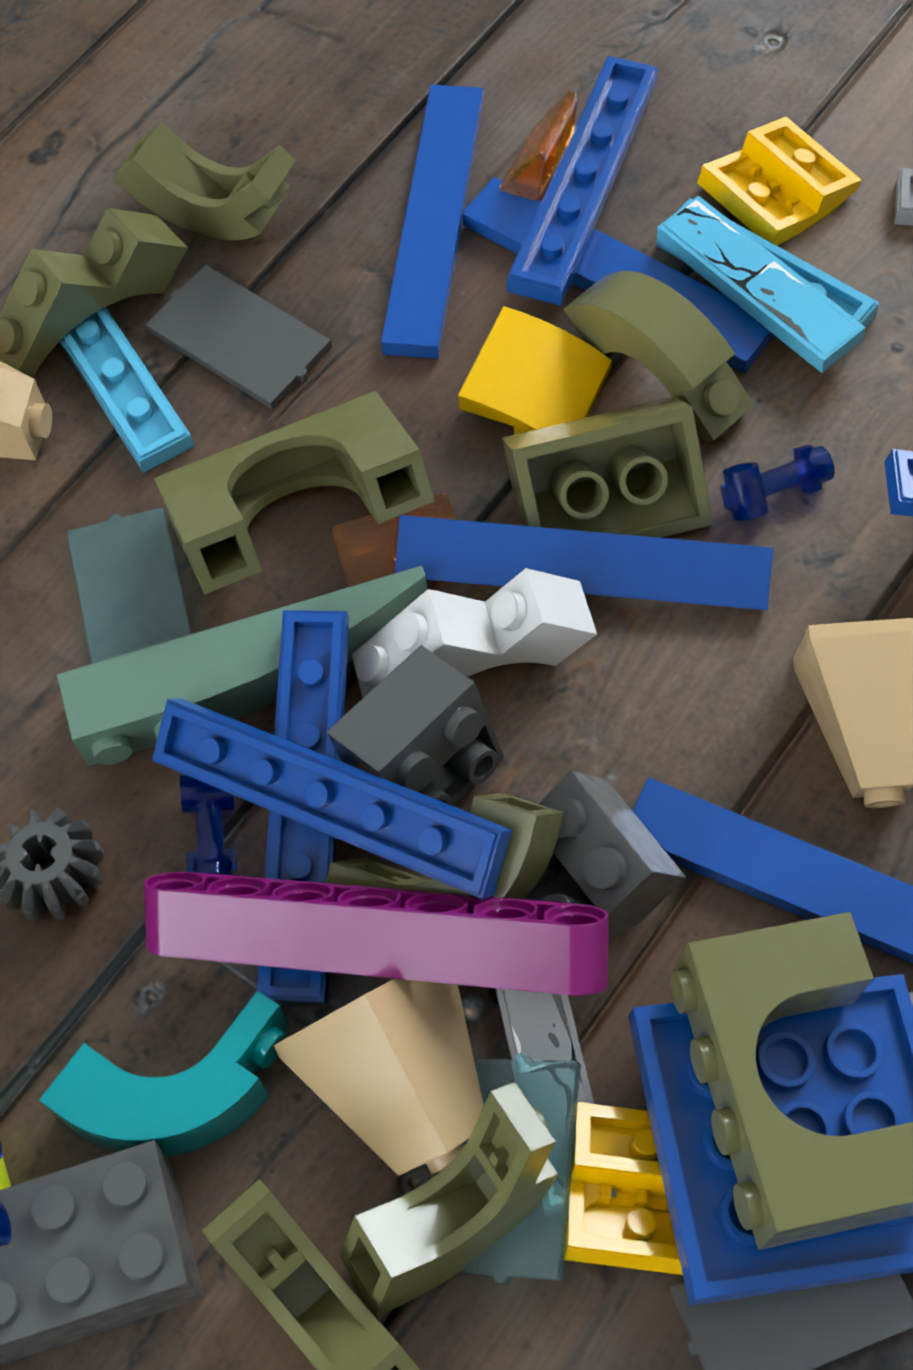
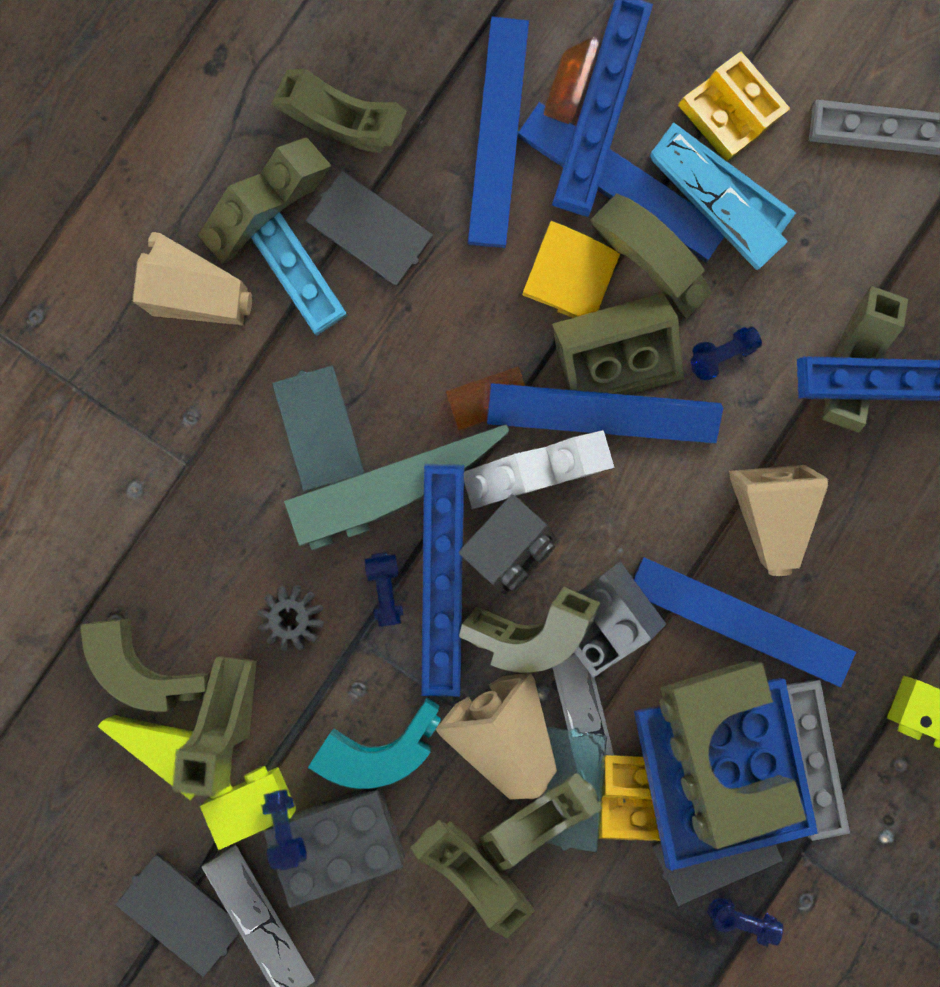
camera: 10 degrees left, 25 degrees up
(334, 797) = (461, 591): blue tile -> none
(346, 446) = (450, 328): olive arch -> none
(379, 932) = (493, 675): beam -> none

